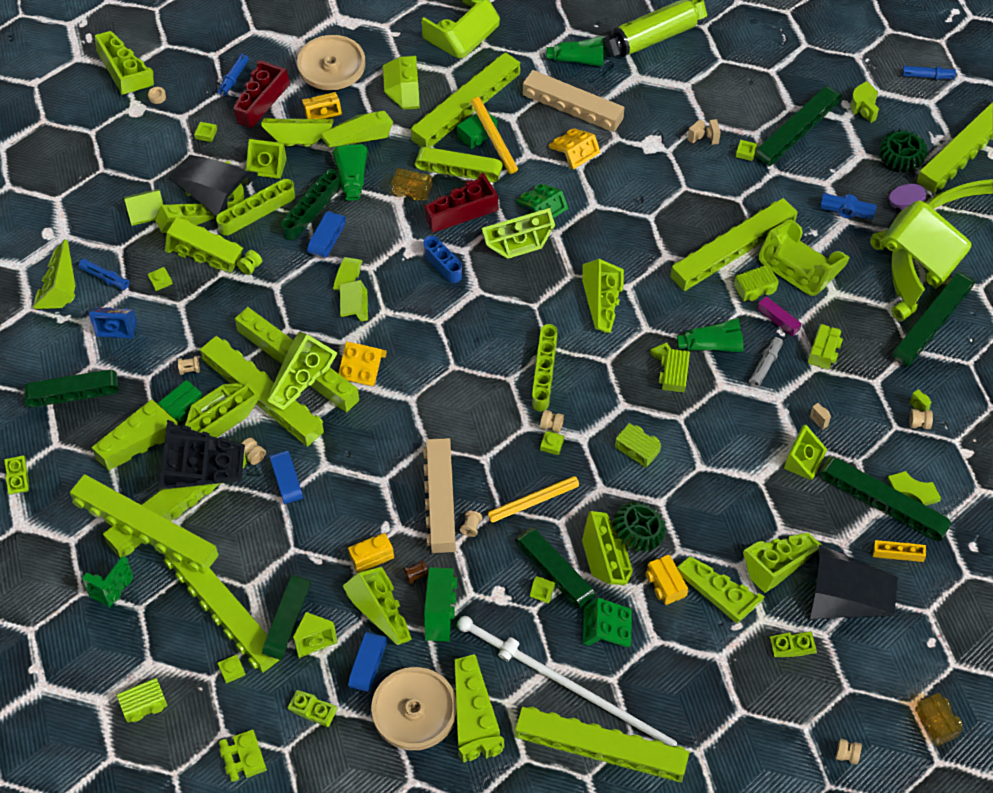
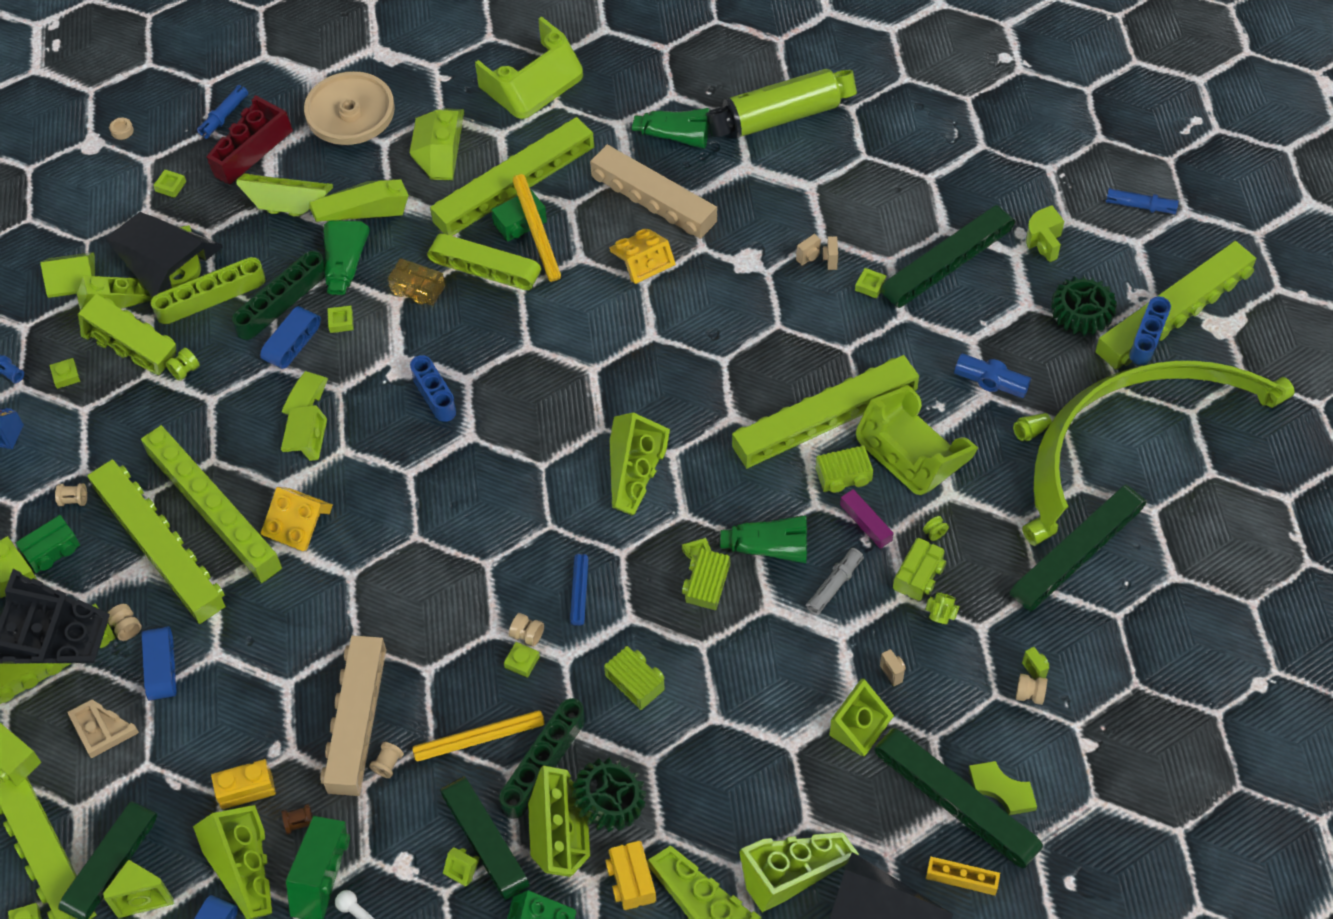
camera: 10 degrees right, 0 degrees up
(125, 69) = (86, 87): lime wedge -> none
(222, 408) = (94, 561): lime wedge -> none
(252, 527) = (100, 727): none -> tan wing
(266, 158) = (236, 227): lime slope -> none
(302, 365) = (207, 515): lime wedge -> none
(322, 106) = (324, 165): yellow brick -> none
(360, 217) = (340, 319): none -> lime plate
(462, 205) = (474, 317): dark red wedge -> none
(519, 234) = (540, 366): lime wedge -> none
(542, 198) = (583, 326): green bracket -> none
(544, 375) = (535, 563): lime beam -> none
(582, 387) = (579, 588): none -> blue axle
(587, 500) = (542, 746): none -> dark green beam
(830, 317) = (935, 528): none -> lime bush
(847, 371) = (942, 608): none -> lime gear
(906, 195) = (1076, 371): medium lavender tile -> none
(928, 240) = (1087, 439): lime windscreen -> none
(956, 162) = (1150, 330): none -> blue beam

